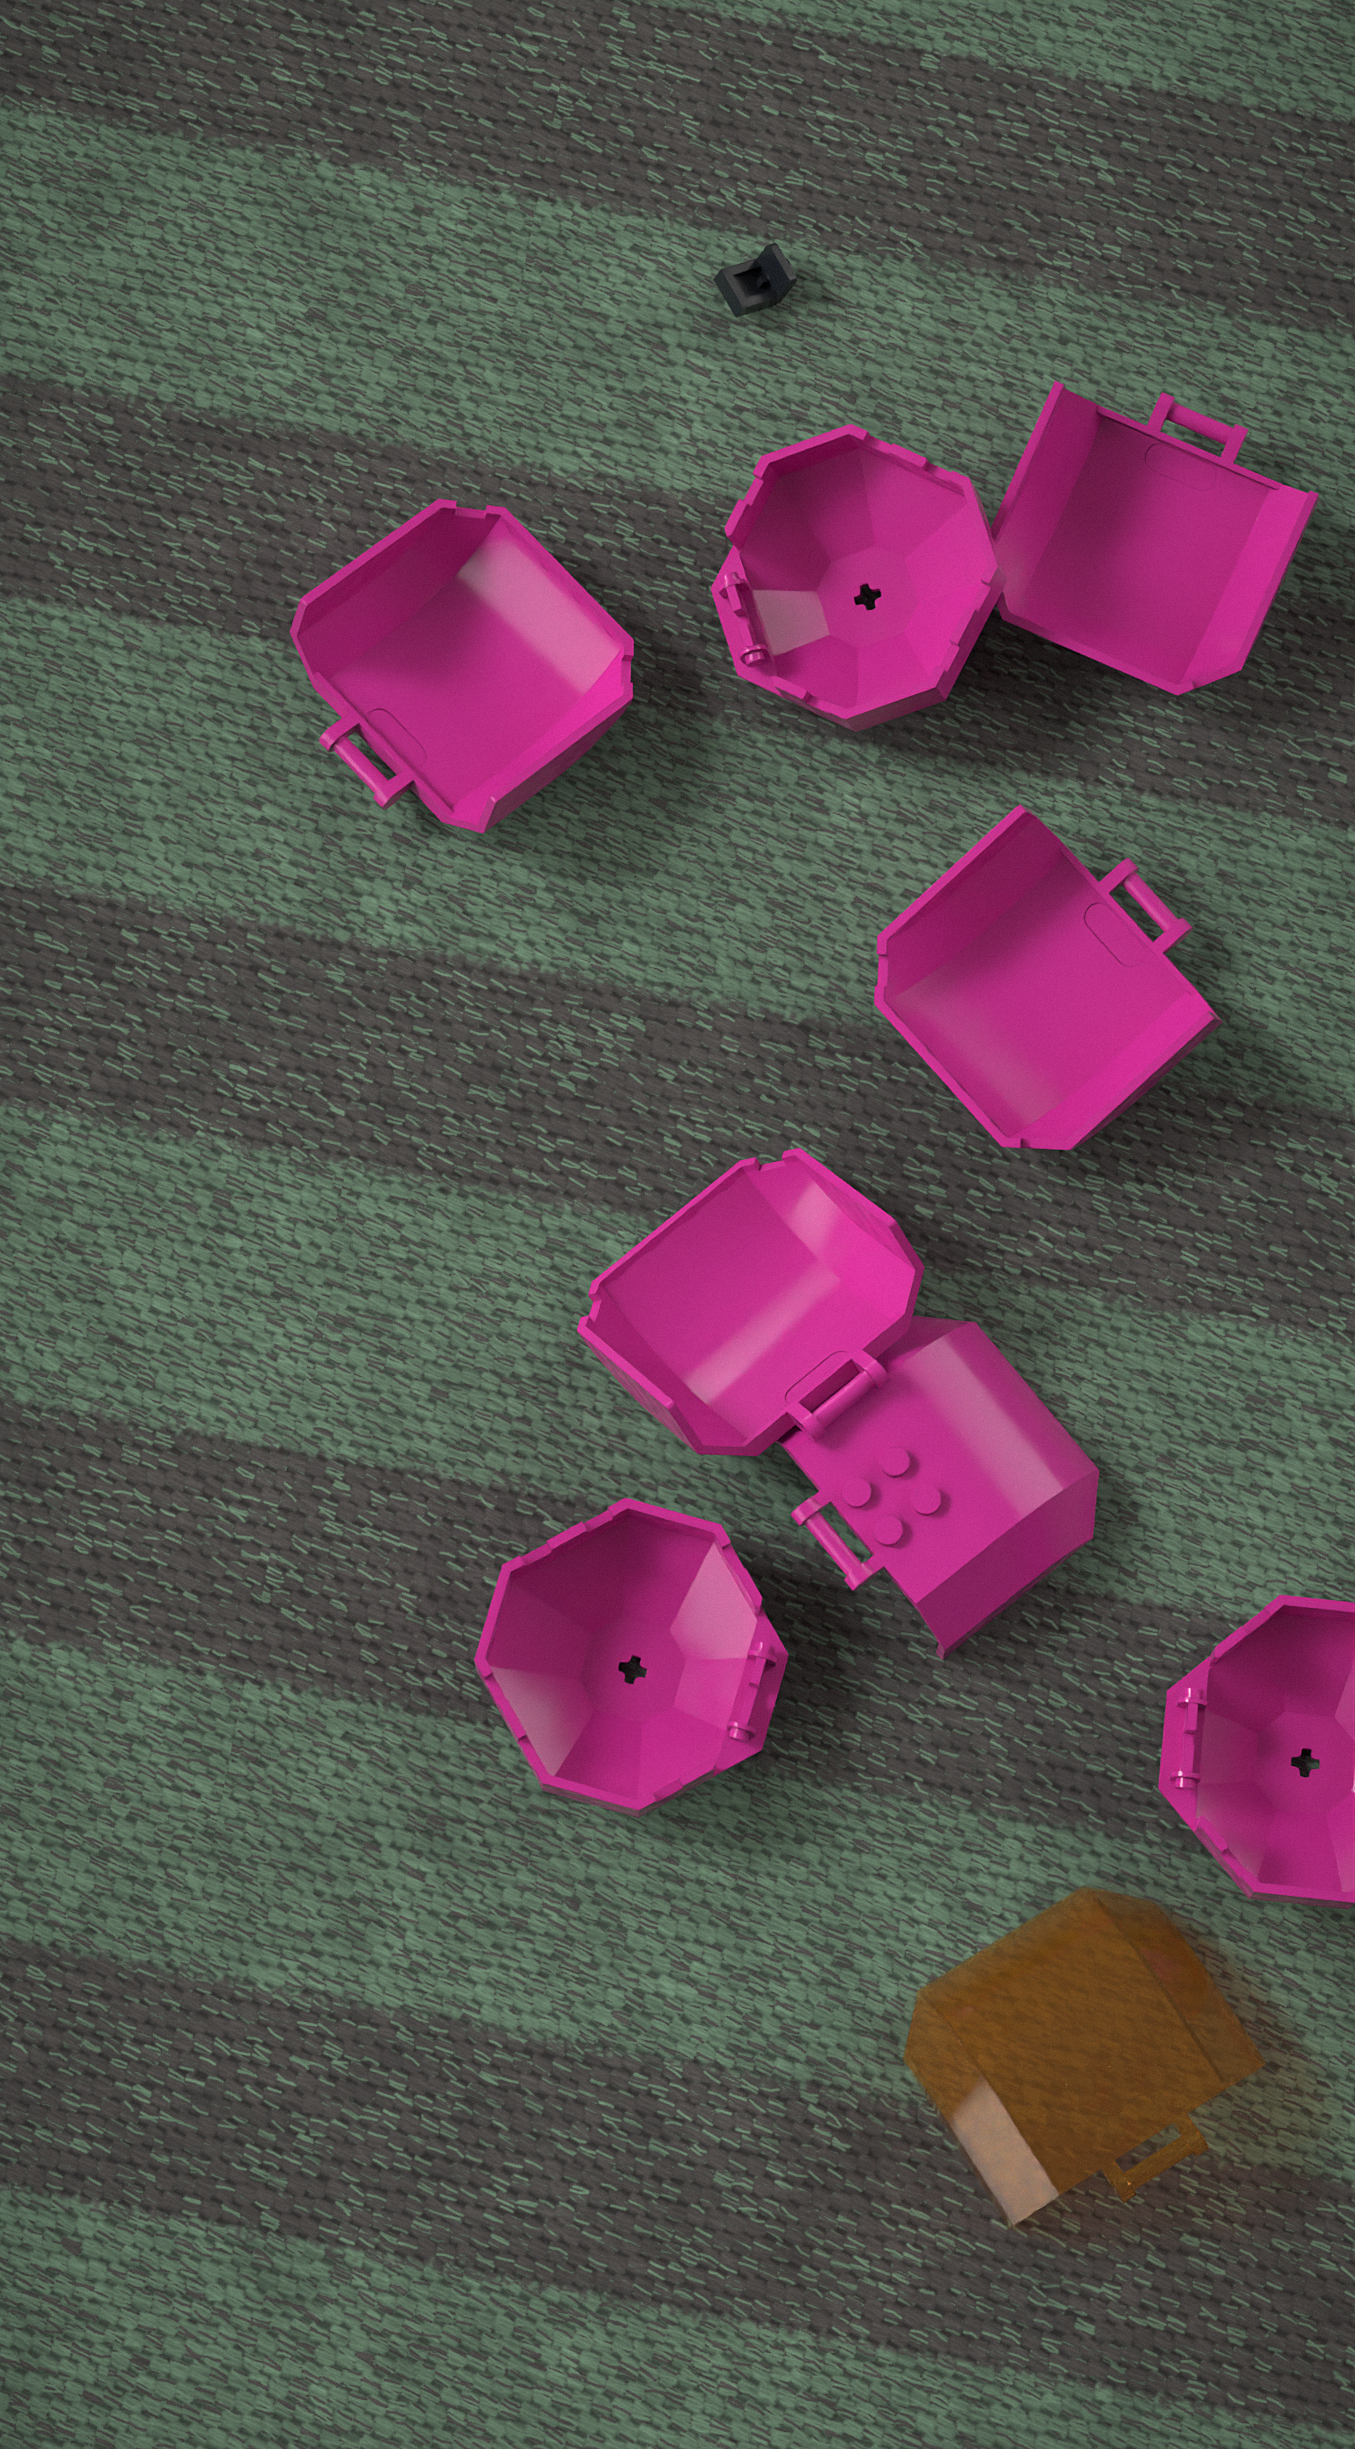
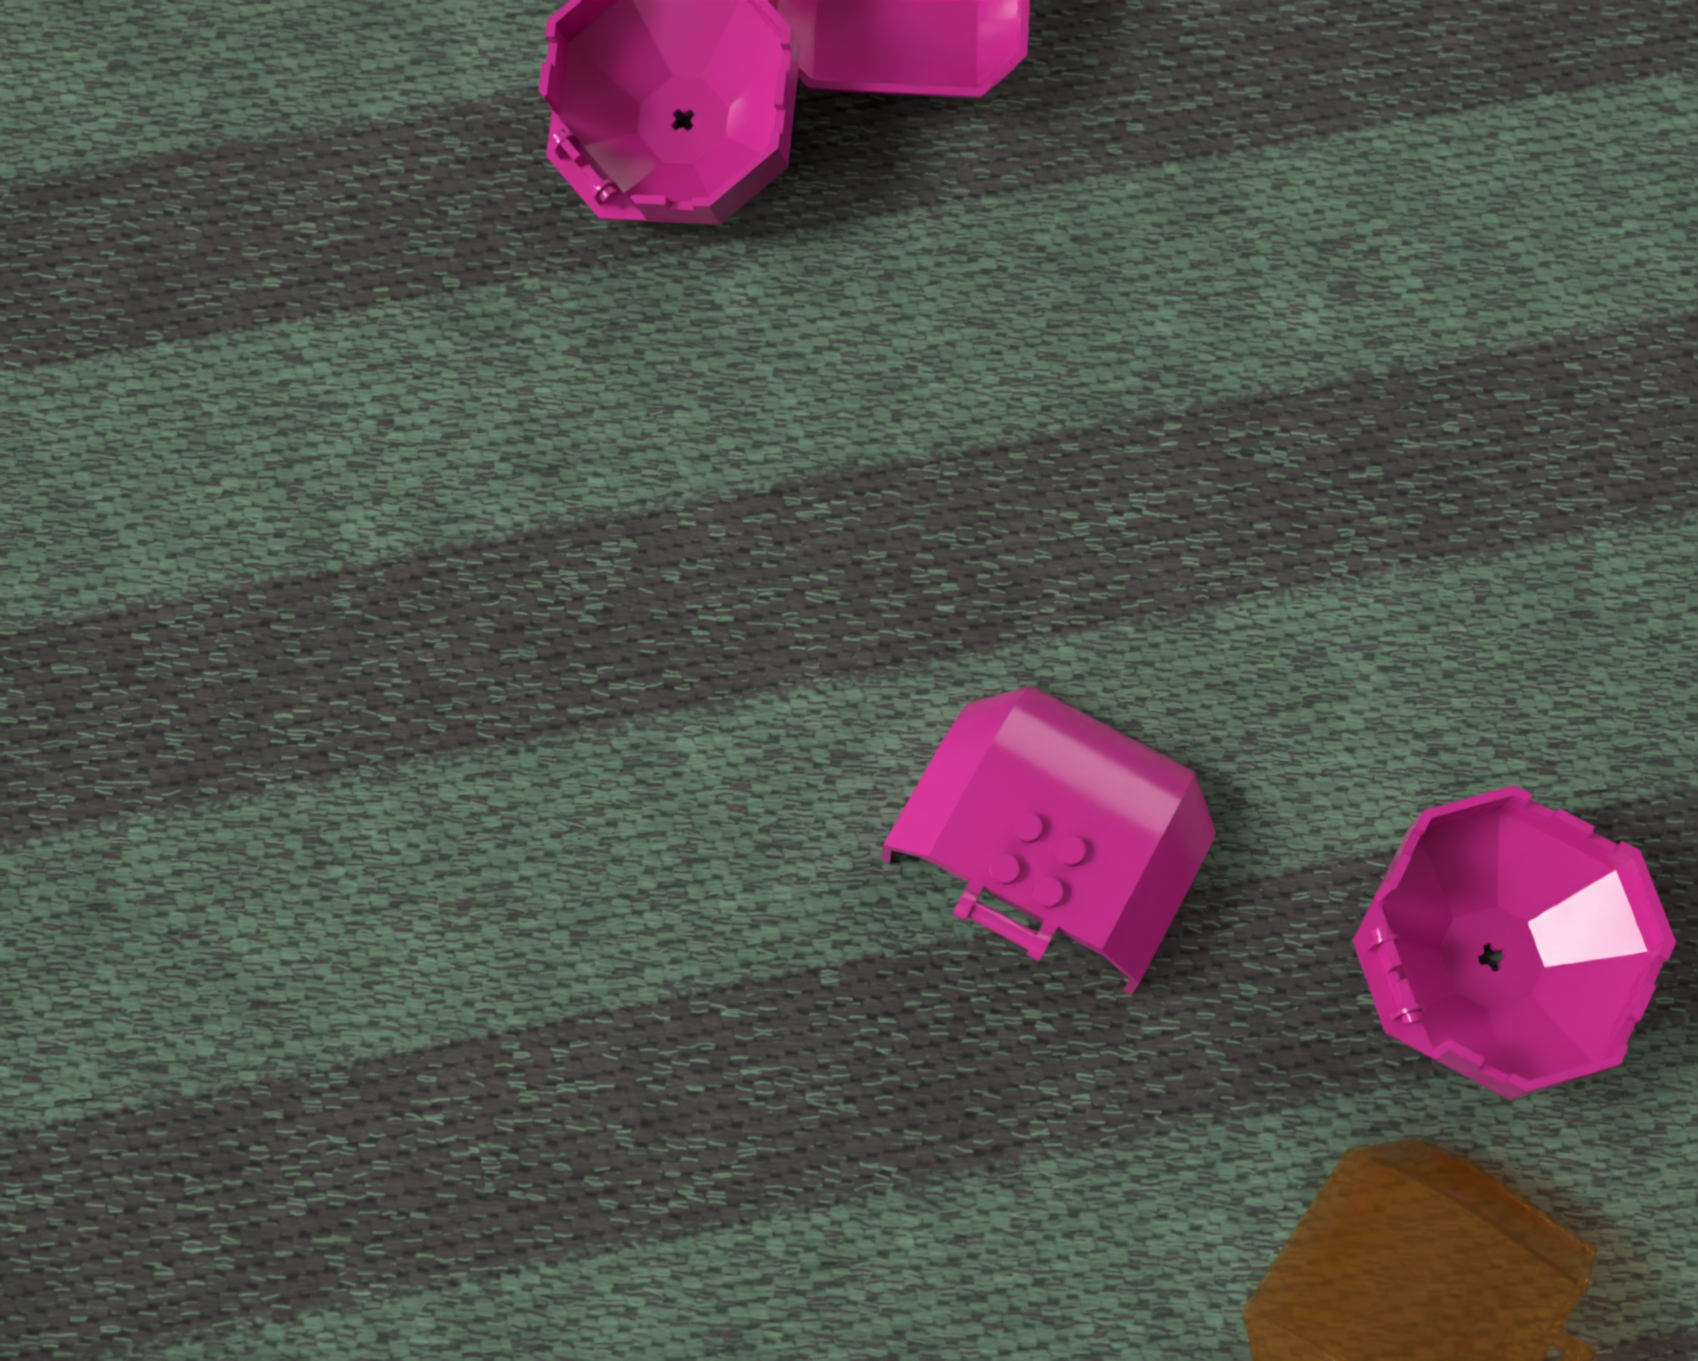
camera: 25 degrees left, 5 degrees down
(462, 663) = (349, 290): dark pink windscreen -> none
(620, 1590) = (874, 1037): dark pink windscreen -> none
(757, 1307) = (842, 739): dark pink windscreen -> none
(1039, 987) = (968, 377): dark pink windscreen -> none

